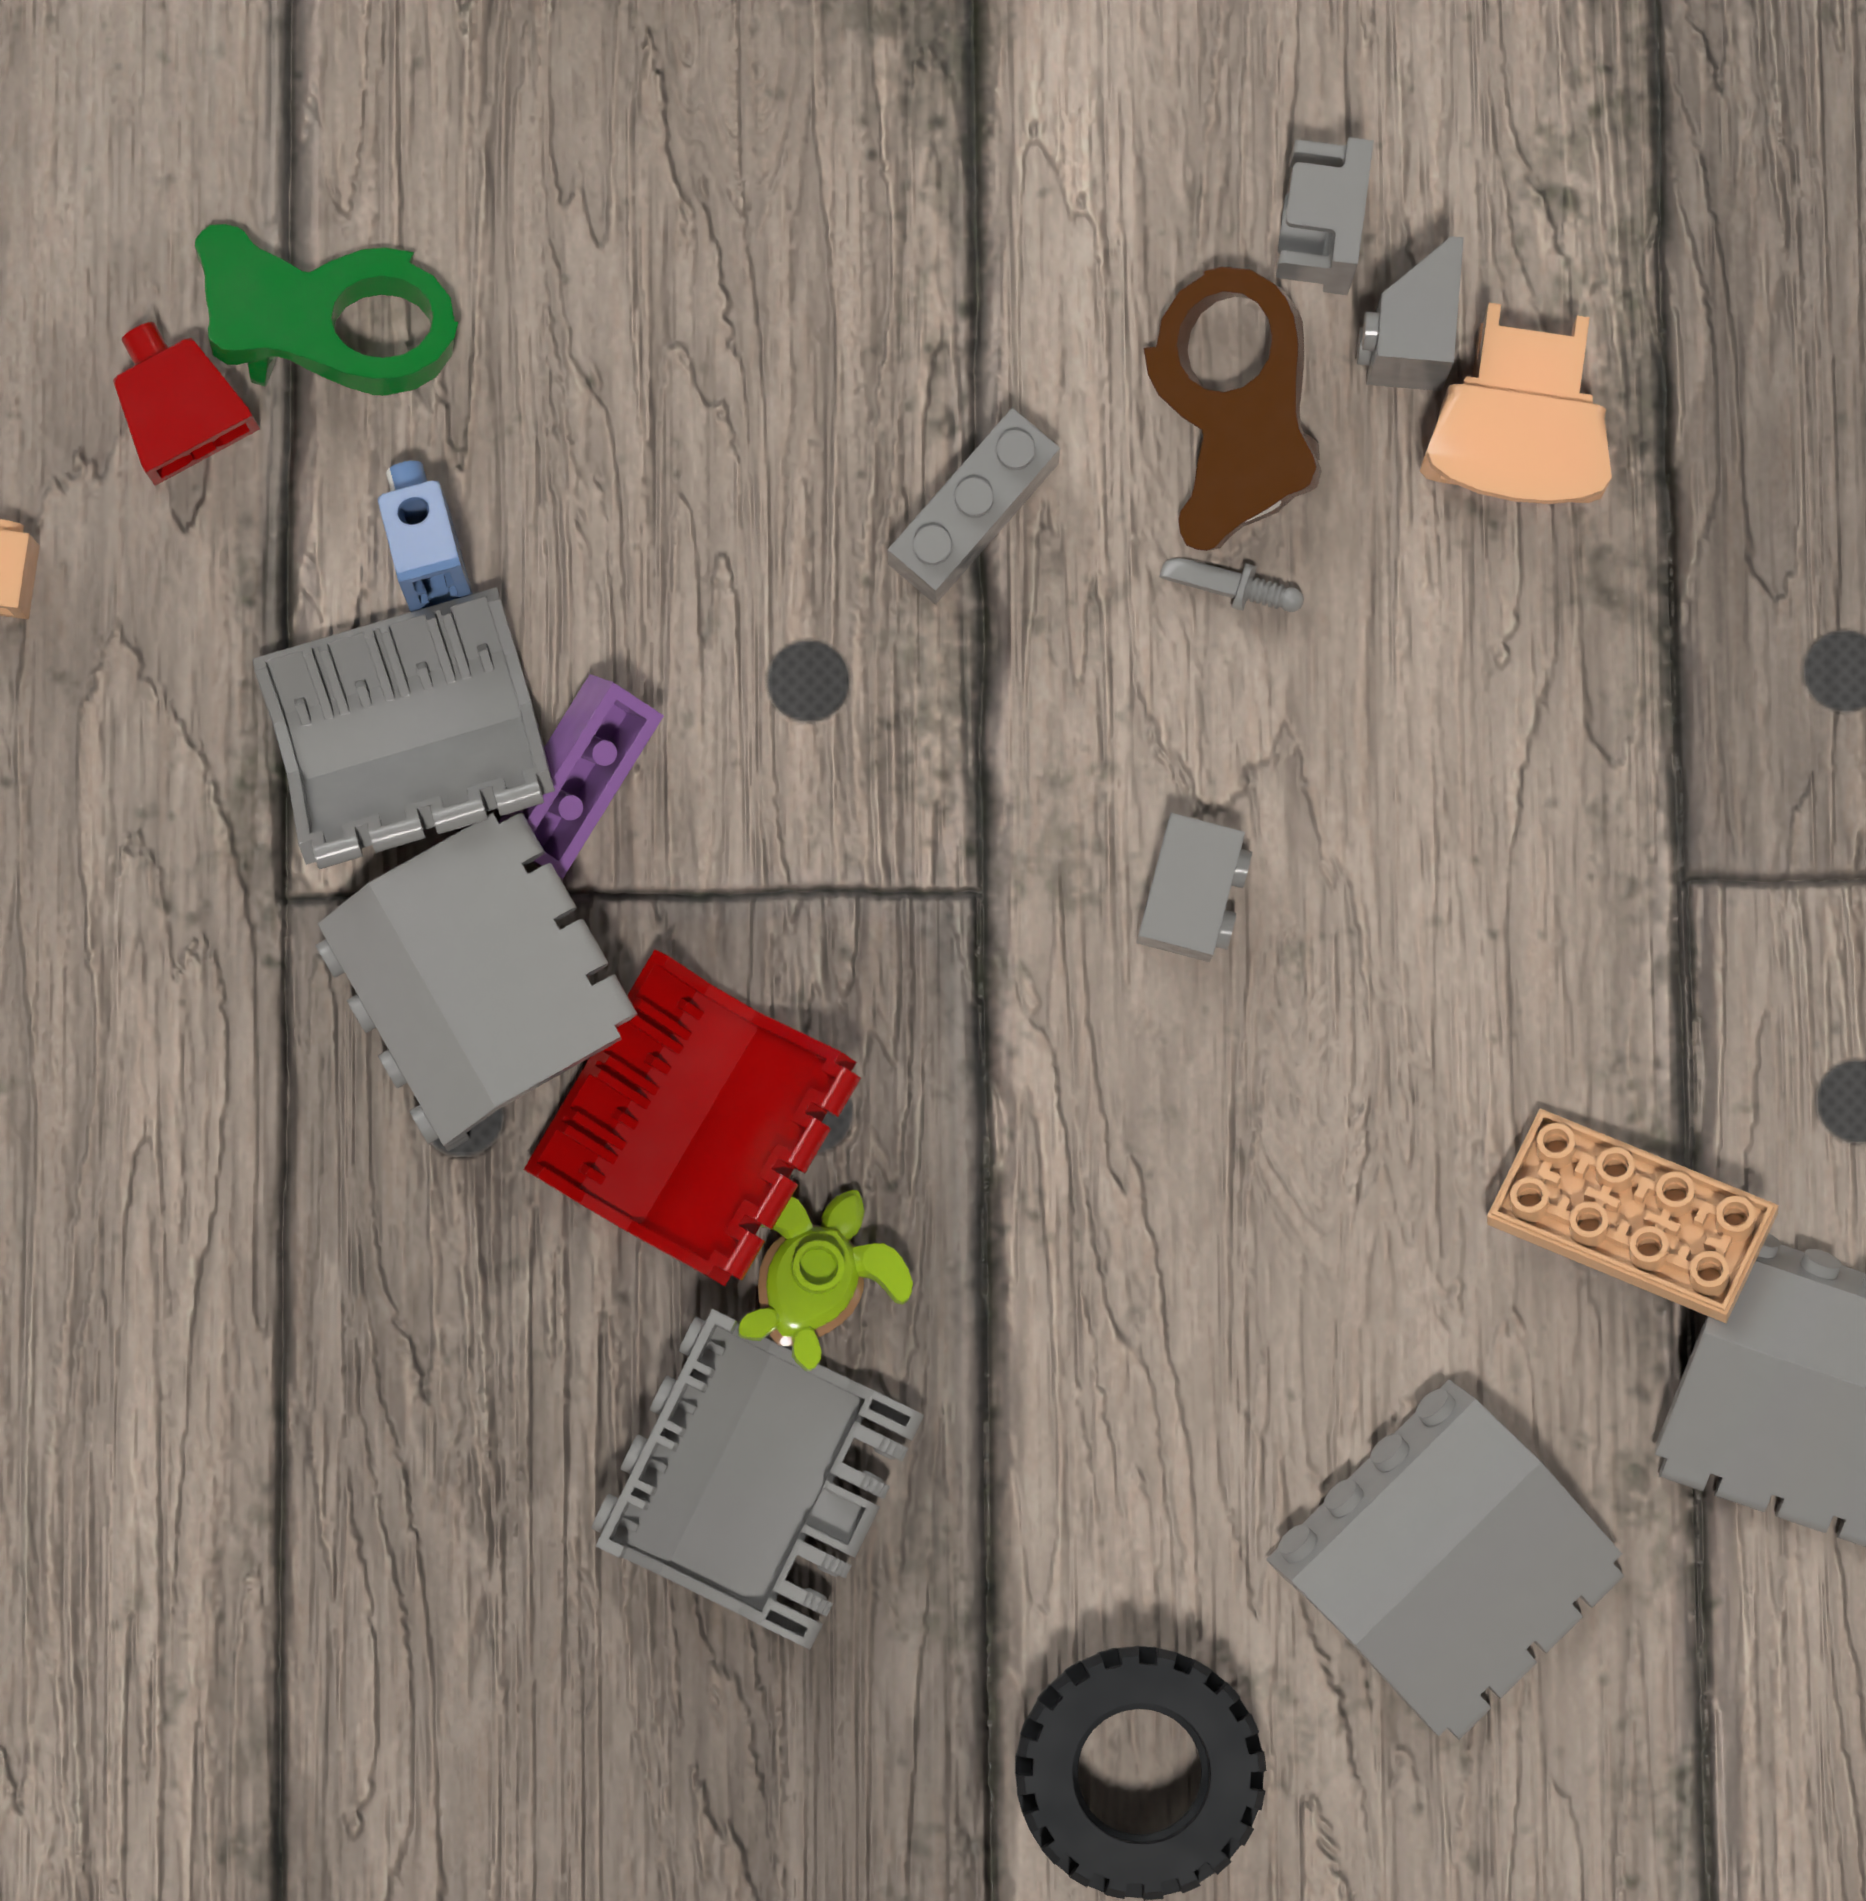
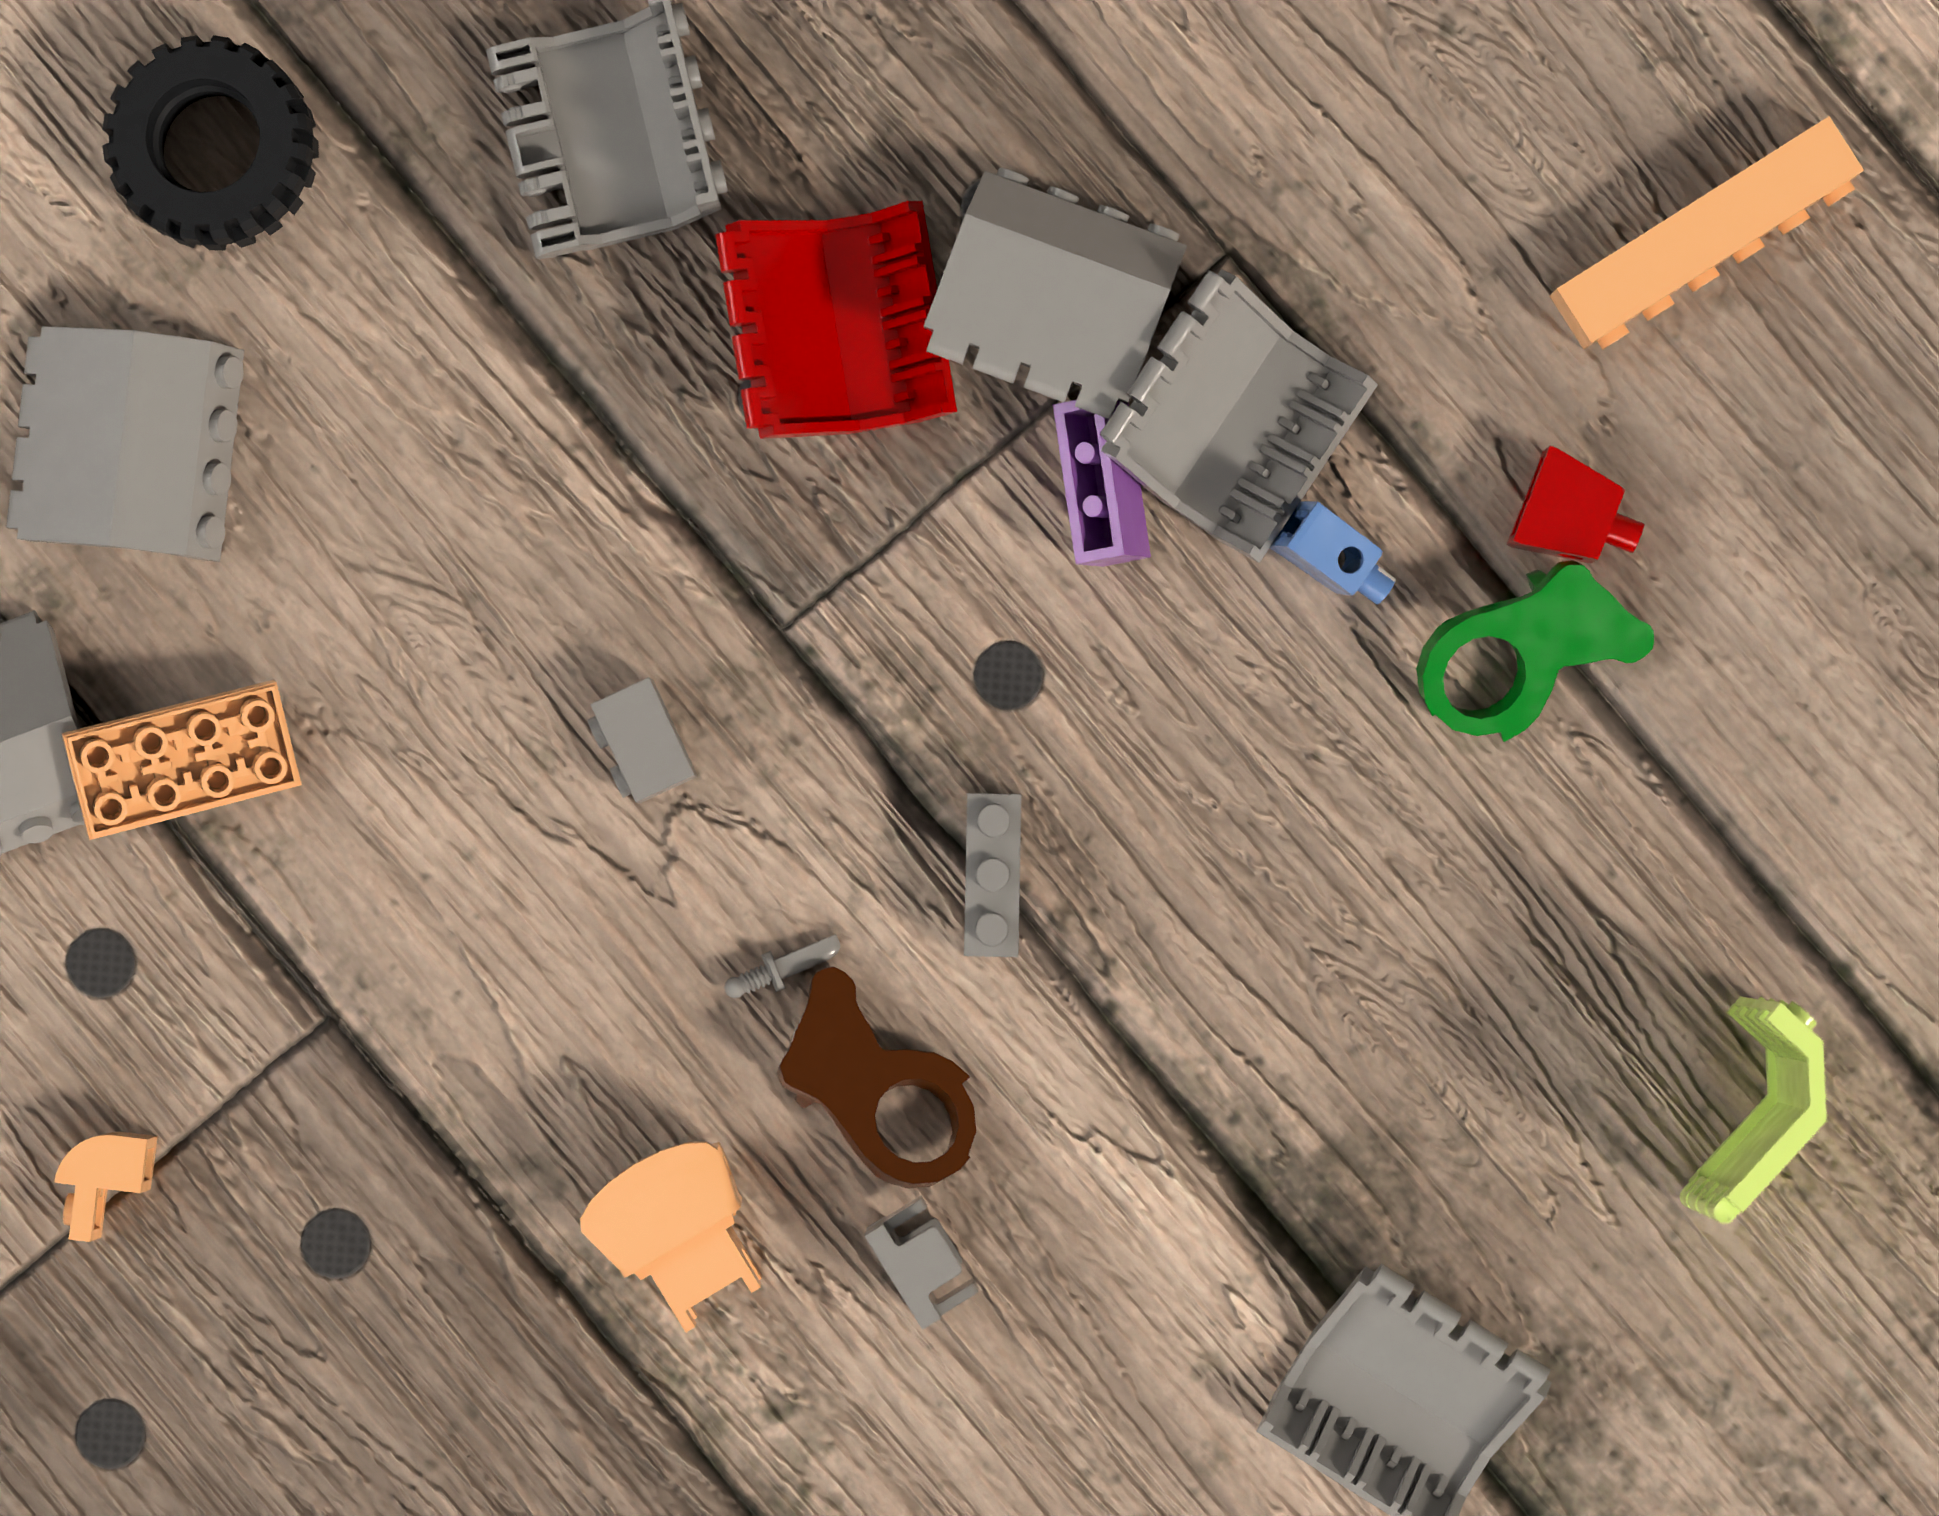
camera: 145 degrees right, 5 degrees up
(817, 1277) = (676, 287): lime animal -> none
(1415, 324) = (799, 1237): light grey slope -> none

